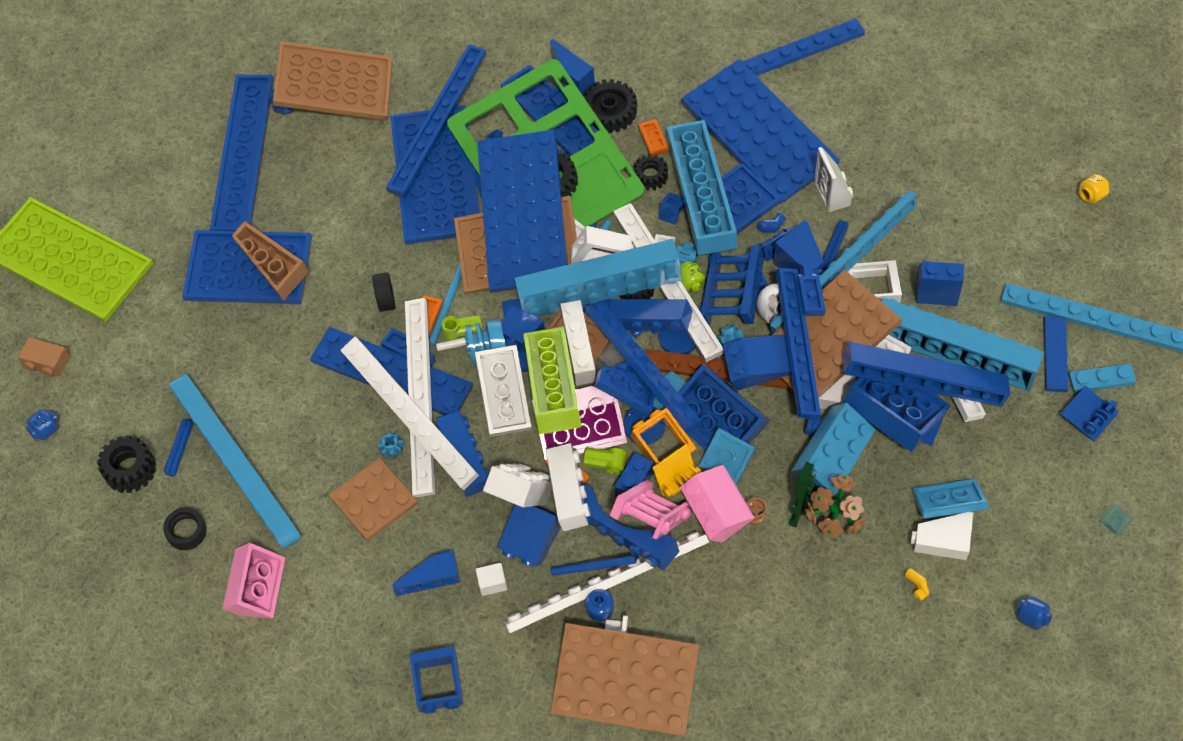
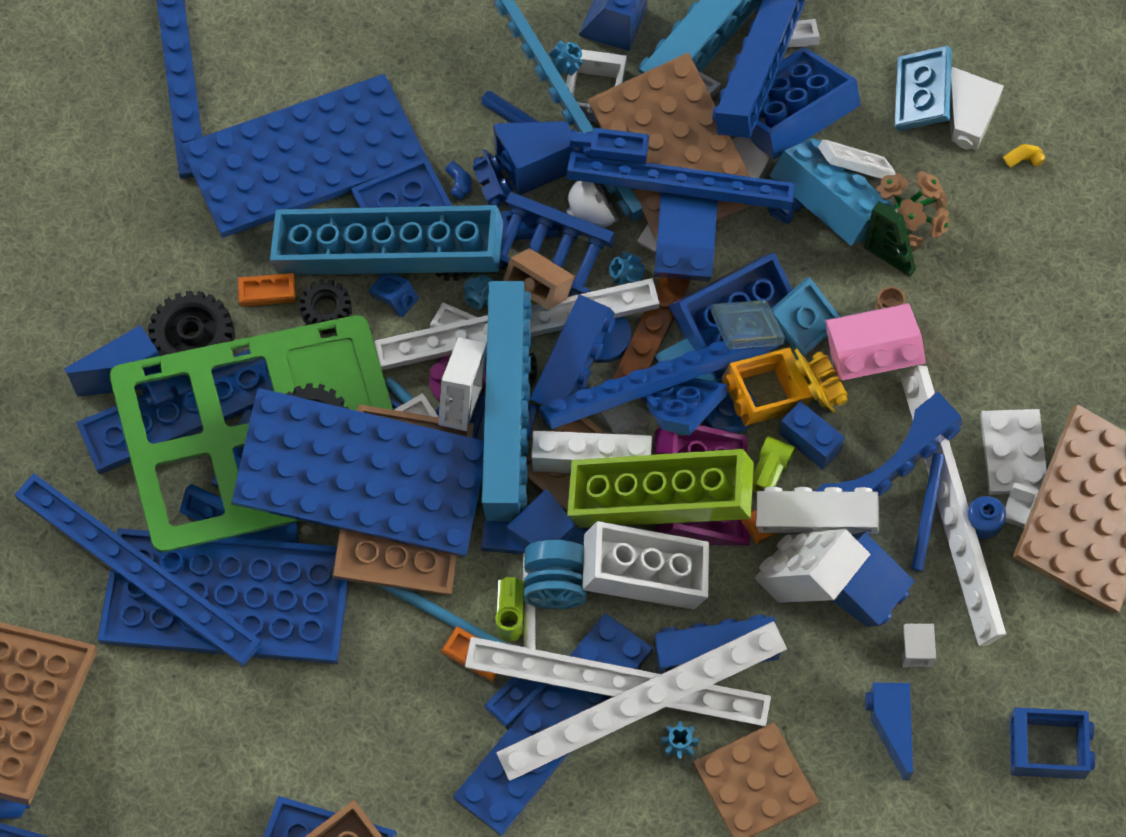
camera: 80 degrees left, 5 degrees up
(383, 291) = (424, 702): black tyre -> none
(650, 508) = (879, 433): bright pink fence -> none
(664, 617) = (1013, 449): none -> white plate
(696, 277) = (542, 278): none -> medium nougat brick
(699, 411) = (747, 324): none -> clear light blue tile
(831, 183) = (429, 89): white slope -> none
(864, 460) = (855, 159): none -> white tile
(885, 253) = (566, 57): none -> dark azure gear
(1034, 613) = (1088, 47): blue head -> none

